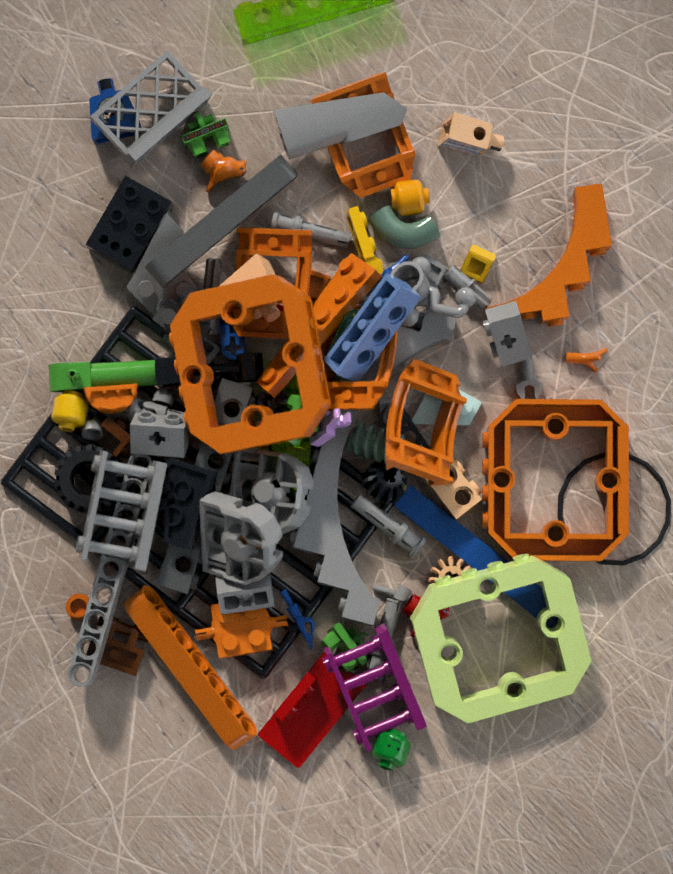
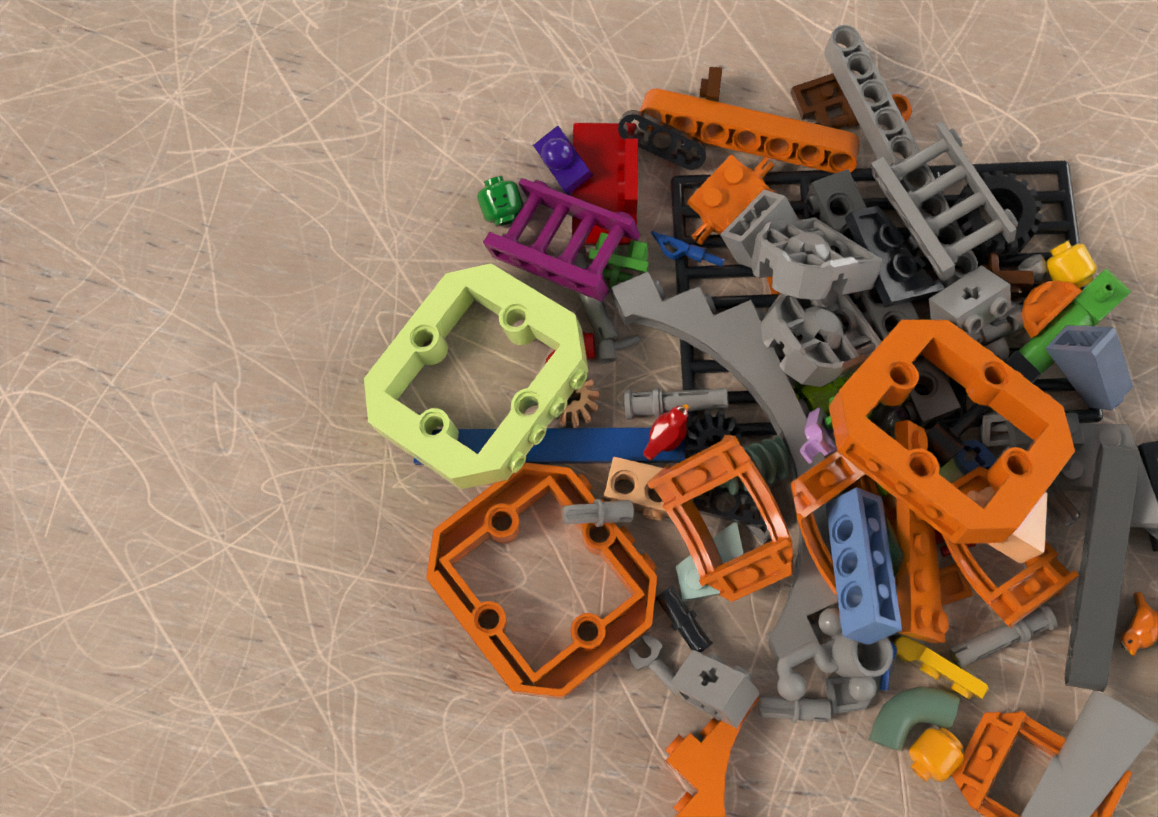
camera: 145 degrees right, 10 degrees down
(121, 338) = (1092, 364): none -> sand blue slope
(188, 719) = (711, 87): none -> reddish brown plate
(250, 717) = (688, 141): none -> black beam
(327, 746) = (562, 160): none -> dark purple tile
(413, 506) = (667, 432): none -> red animal
(478, 263) = (805, 745): yellow slope -> none
(491, 389) = (683, 620): none -> black pin
(495, 489) = (599, 512): none -> light grey axle
(586, 358) = (611, 734): orange bar -> none
(665, 492) = (457, 672): black piece -> none

